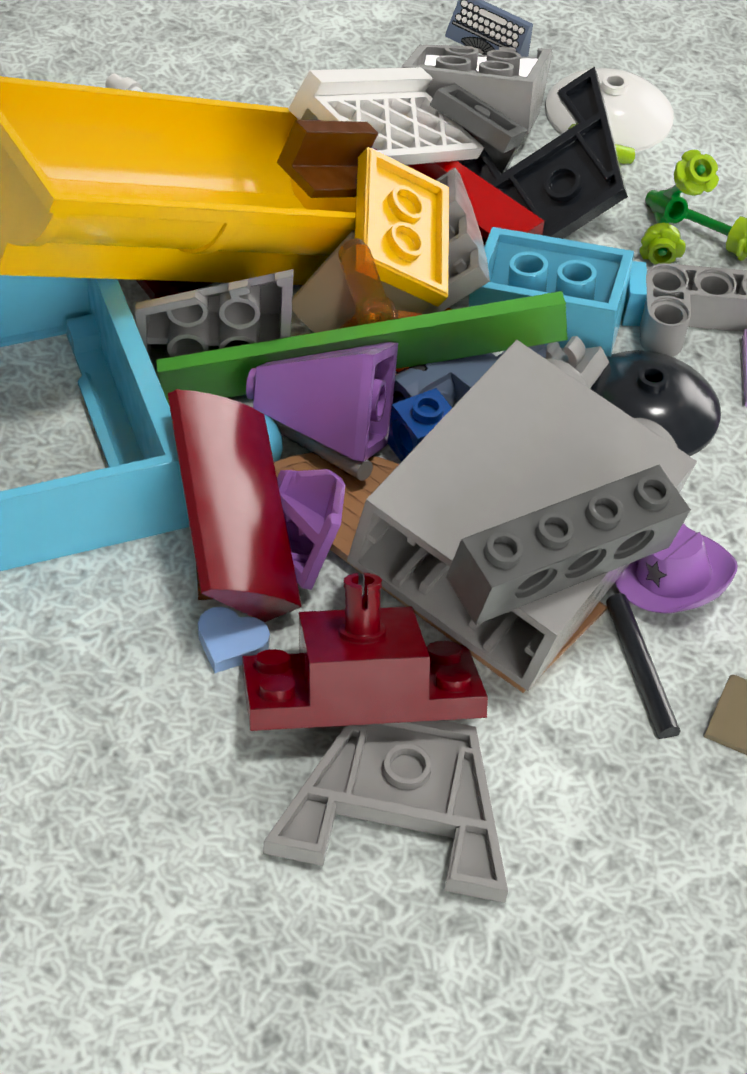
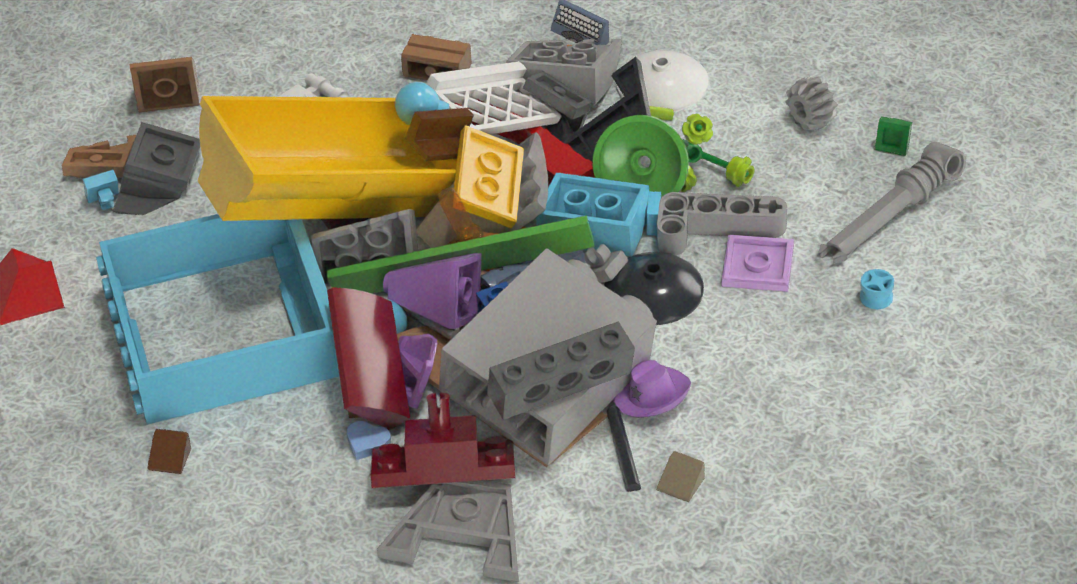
camera: 10 degrees right, 5 degrees down
(282, 59) = (434, 55): none -> medium nougat brick
(287, 102) = (417, 97): none -> medium azure piece
(619, 181) = (630, 138): none -> bright green dish

